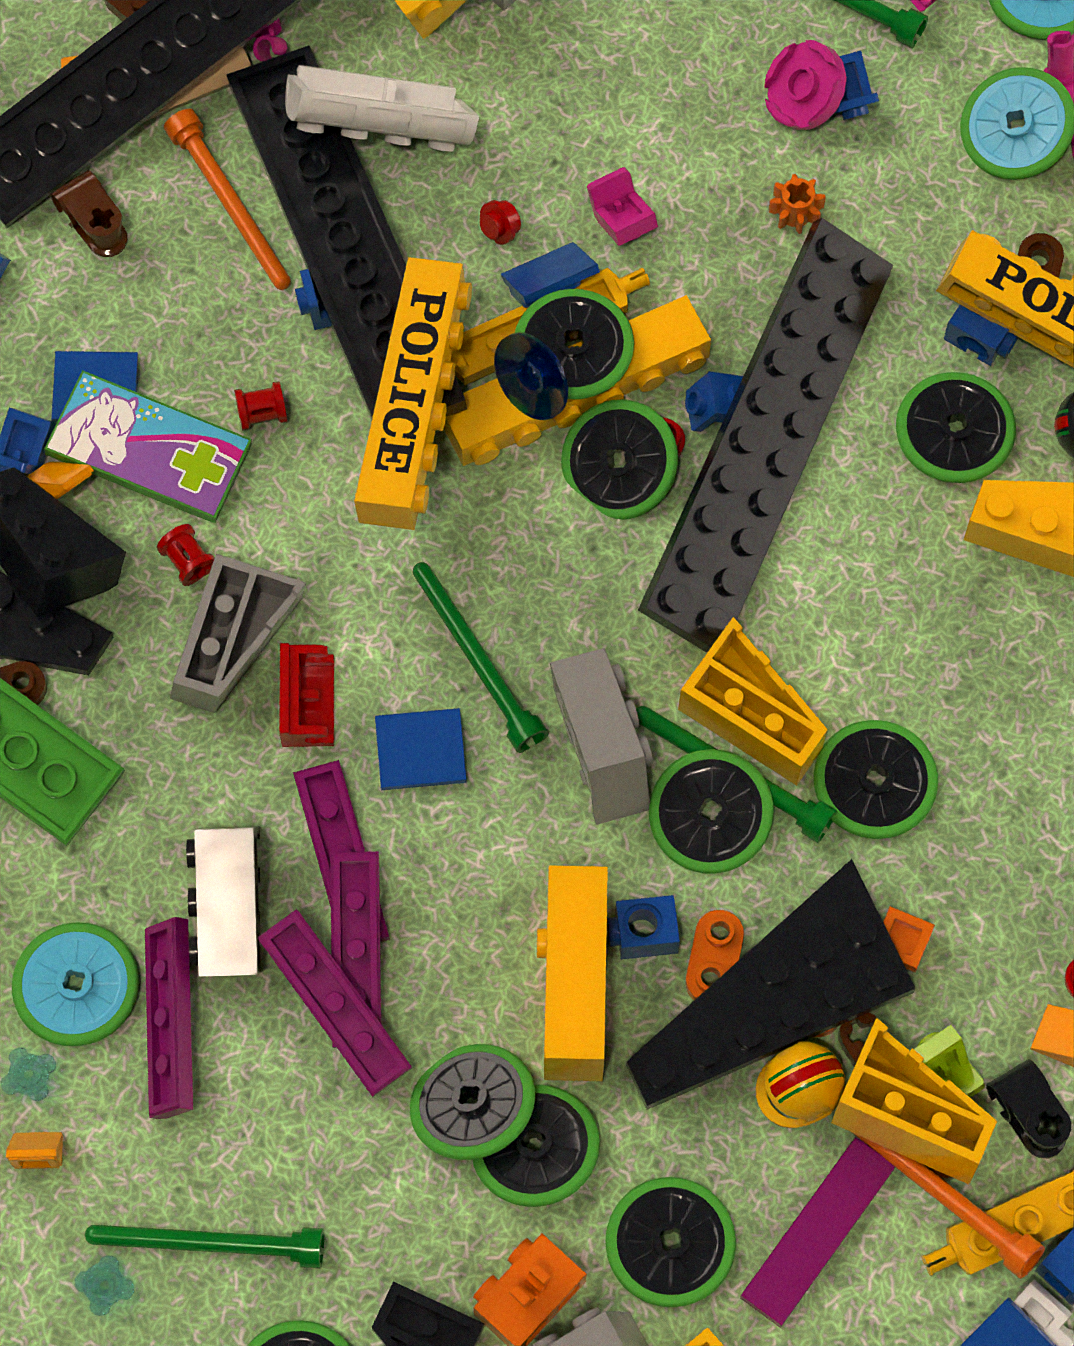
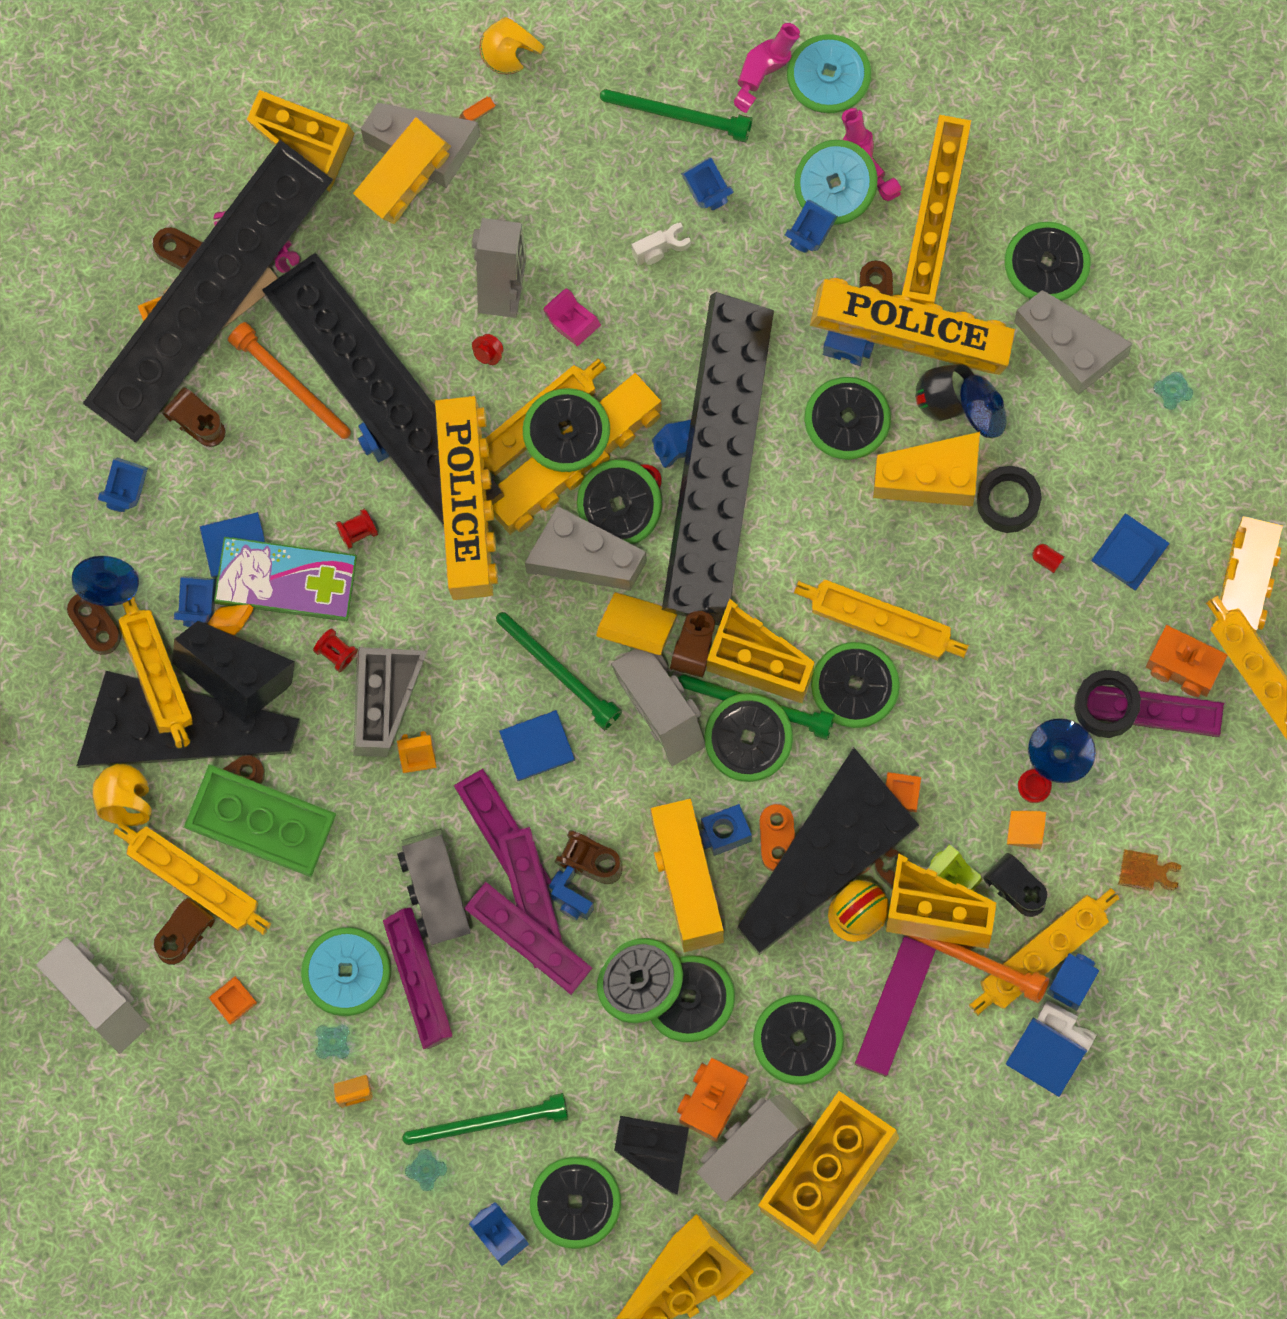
camera: 10 degrees left, 5 degrees up
(254, 717) = (416, 753): none -> light orange tile
(306, 696) = (448, 729): red hinge -> none
(379, 105) = (380, 288): white container -> none
(408, 971) = (572, 903): none -> blue bracket
(443, 912) = (585, 855): none -> reddish brown piece
(531, 376) = (544, 463): dish -> none
(544, 114) = (499, 267): none -> light grey wedge
(549, 273) = (534, 380): blue piece -> none
(556, 511) = (584, 553): none -> light grey wedge
(599, 621) = (636, 624): none -> yellow tile
(668, 667) = (694, 644): none -> reddish brown piece
(756, 144) = (653, 246): none -> white plate
(796, 203) = (700, 288): orange gear -> none
(805, 85) = (678, 192): dark pink tile -> none
(933, 701) = (881, 619): none -> yellow plate
(970, 172) = (811, 227): none -> blue bracket

